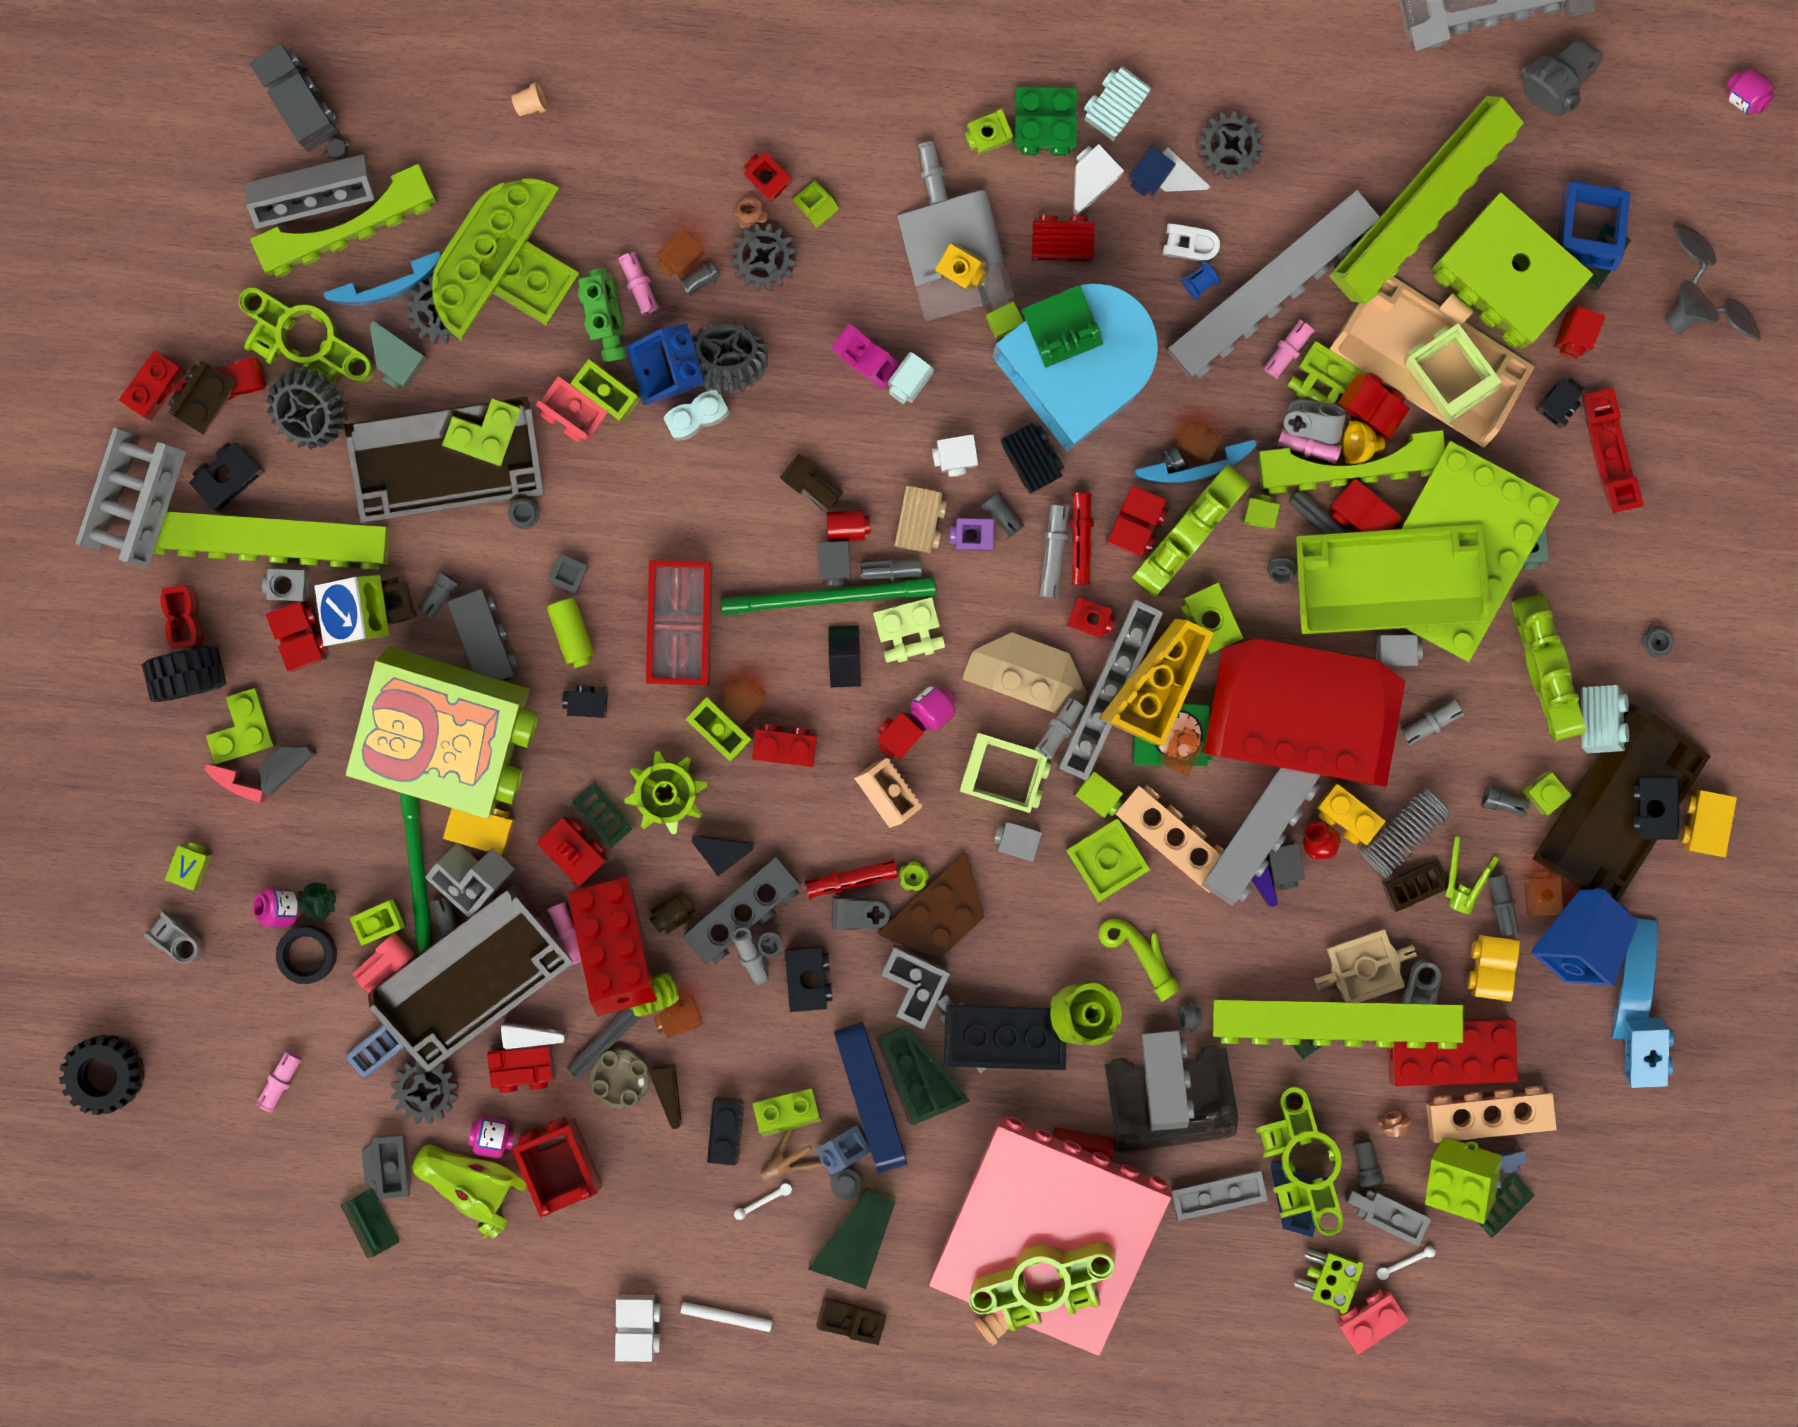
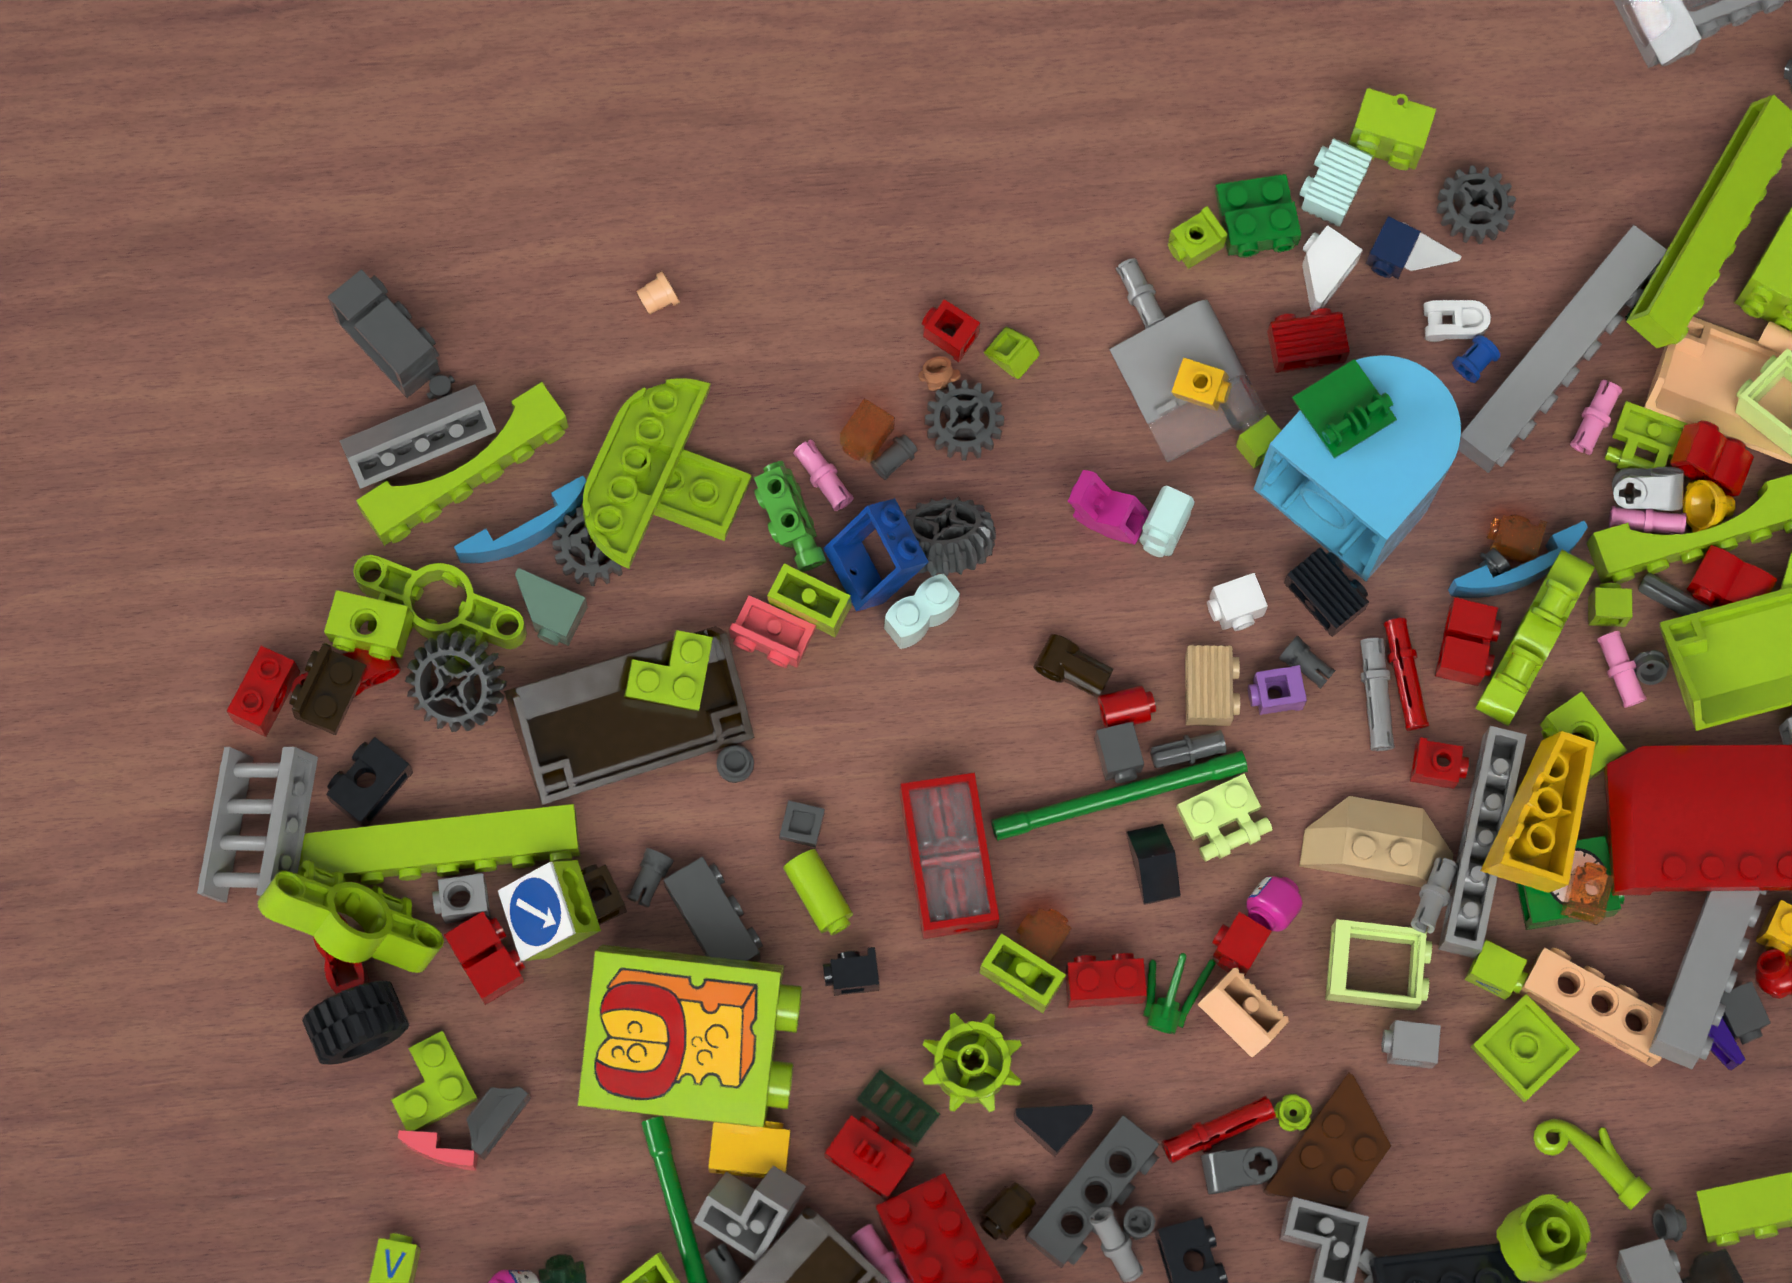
camera: 20 degrees left, 15 degrees down
(157, 577) = (311, 905): none -> lime piece
(226, 340) = (353, 610): none -> lime brick
(828, 780) = (1166, 1014): none -> green plant
(1170, 68) = (1391, 129): none -> lime brick
(1258, 567) = (1621, 669): none -> bright pink pin

